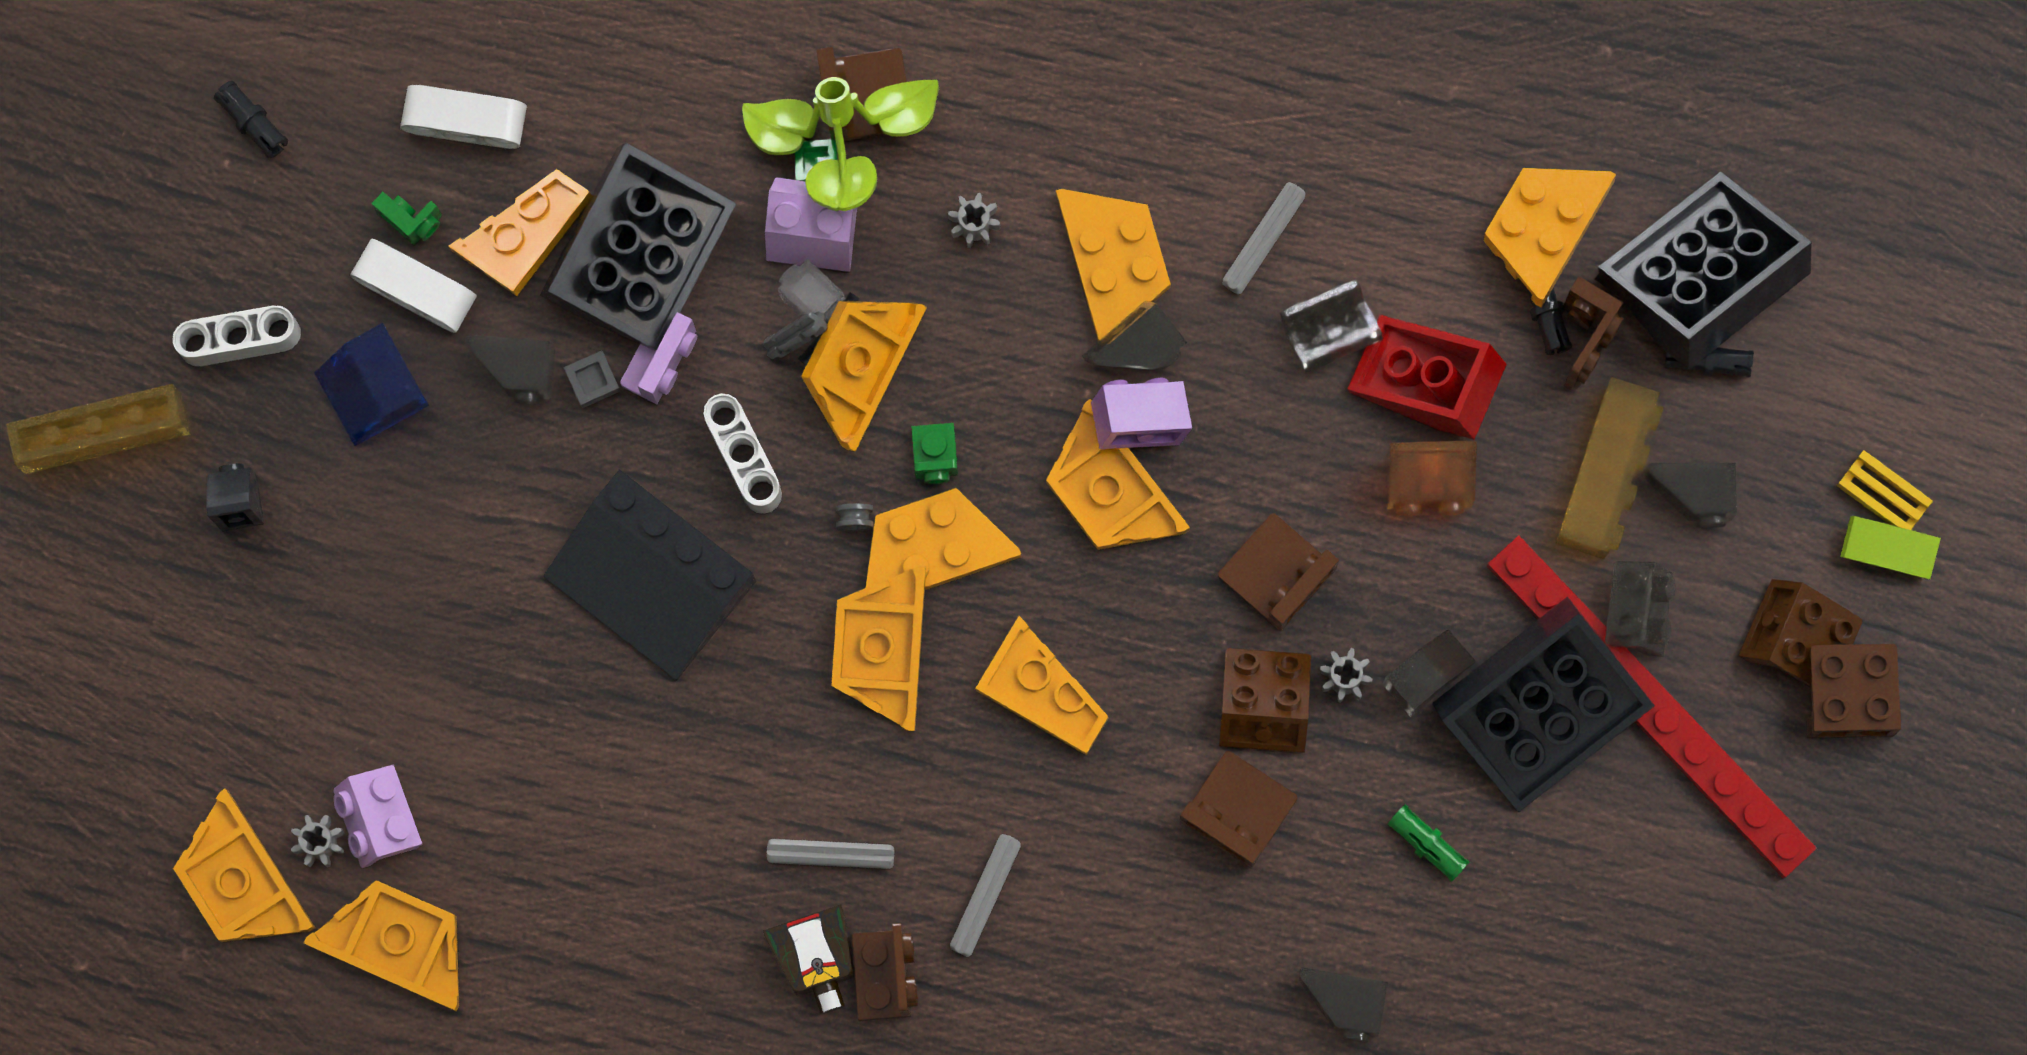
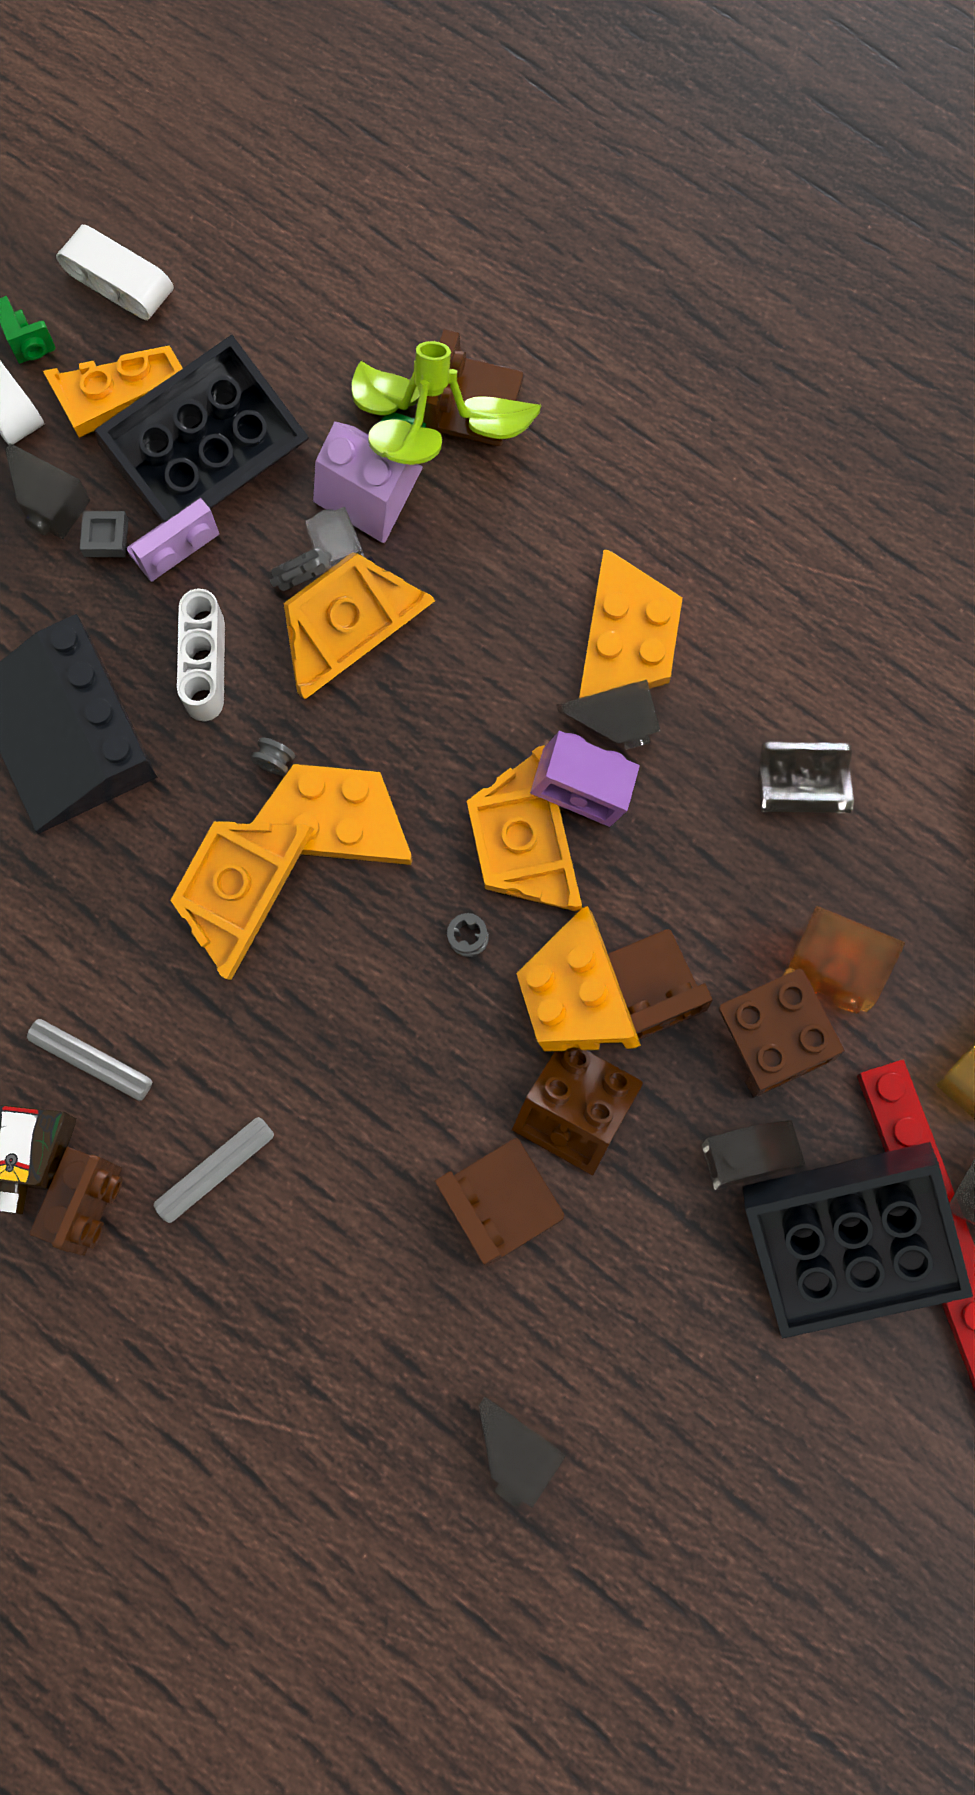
camera: 25 degrees right, 5 degrees down
(934, 452) = (377, 733): green bracket -> none
(978, 210) = (515, 531): light grey gear -> none
(1040, 690) = (365, 995): light orange wing -> none
(1104, 610) = (473, 922): none -> dark grey bush
(1219, 603) = (575, 991): none -> light orange wing
(1264, 238) = (778, 674): light grey axle -> none
(1356, 671) = (664, 1105): light grey gear -> none
(1406, 559) = (780, 1031): none -> reddish brown bracket
(1428, 843) = (675, 1327): green pin -> none
(1429, 376) = (883, 867): red slope -> none

